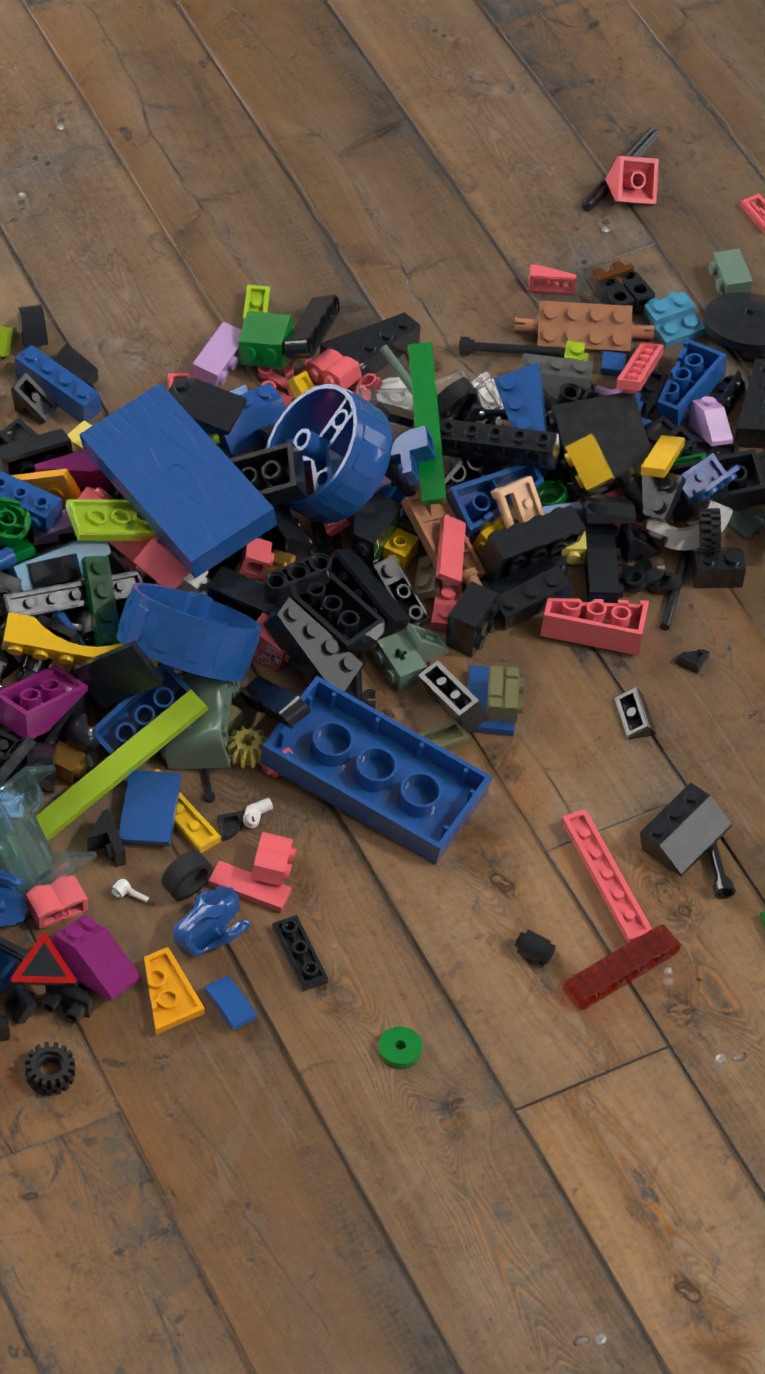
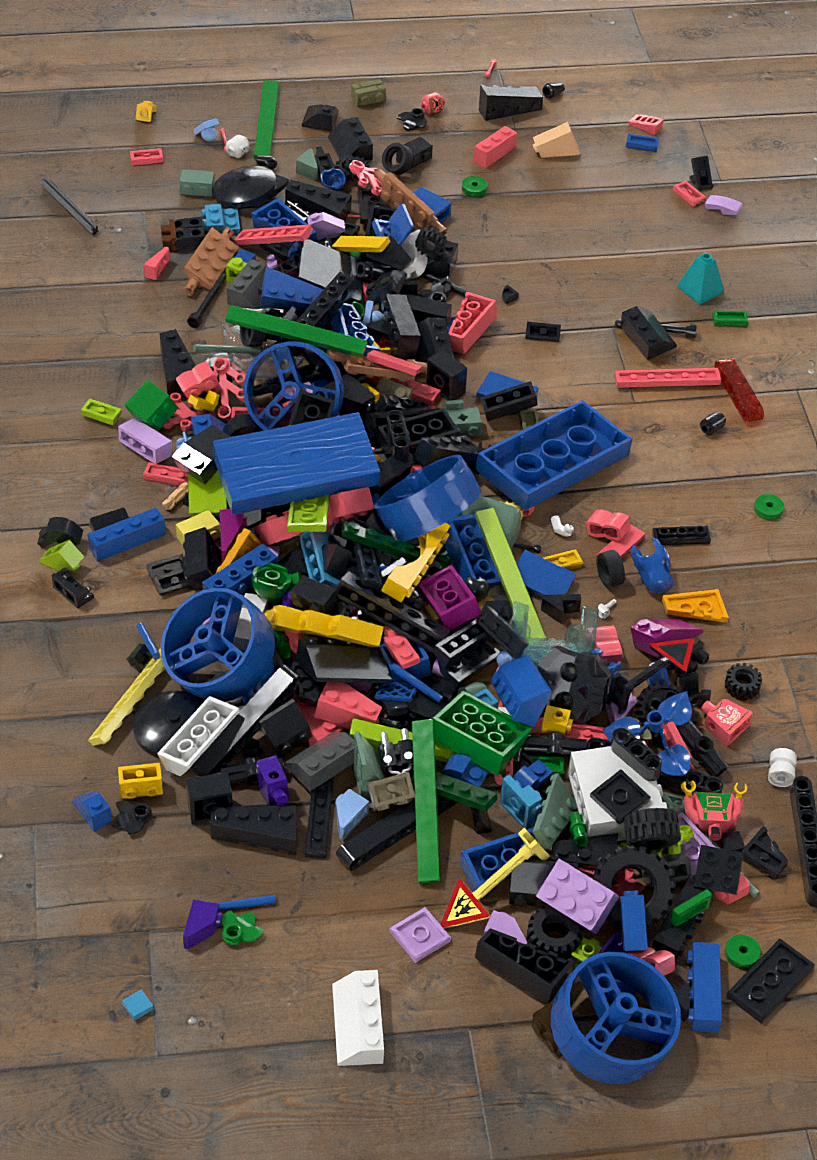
camera: 70 degrees left, 5 degrees down
(30, 395) = (134, 550): black slope -> none
(118, 674) = (454, 540): black tile -> none
(230, 824) = (565, 544): black tile -> none
(231, 1002) = (714, 576): blue slope -> none
(275, 702) = (504, 472): black beam -> none
(312, 327) = (134, 378): black beam -> none
(412, 448) = (323, 340): brick -> none
(503, 694) = (510, 376): olive brick -> none
(524, 500) = (371, 321): light nougat plate -> none
(589, 463) = (360, 275): yellow brick -> none
(634, 179) = (91, 198): coral slope -> none

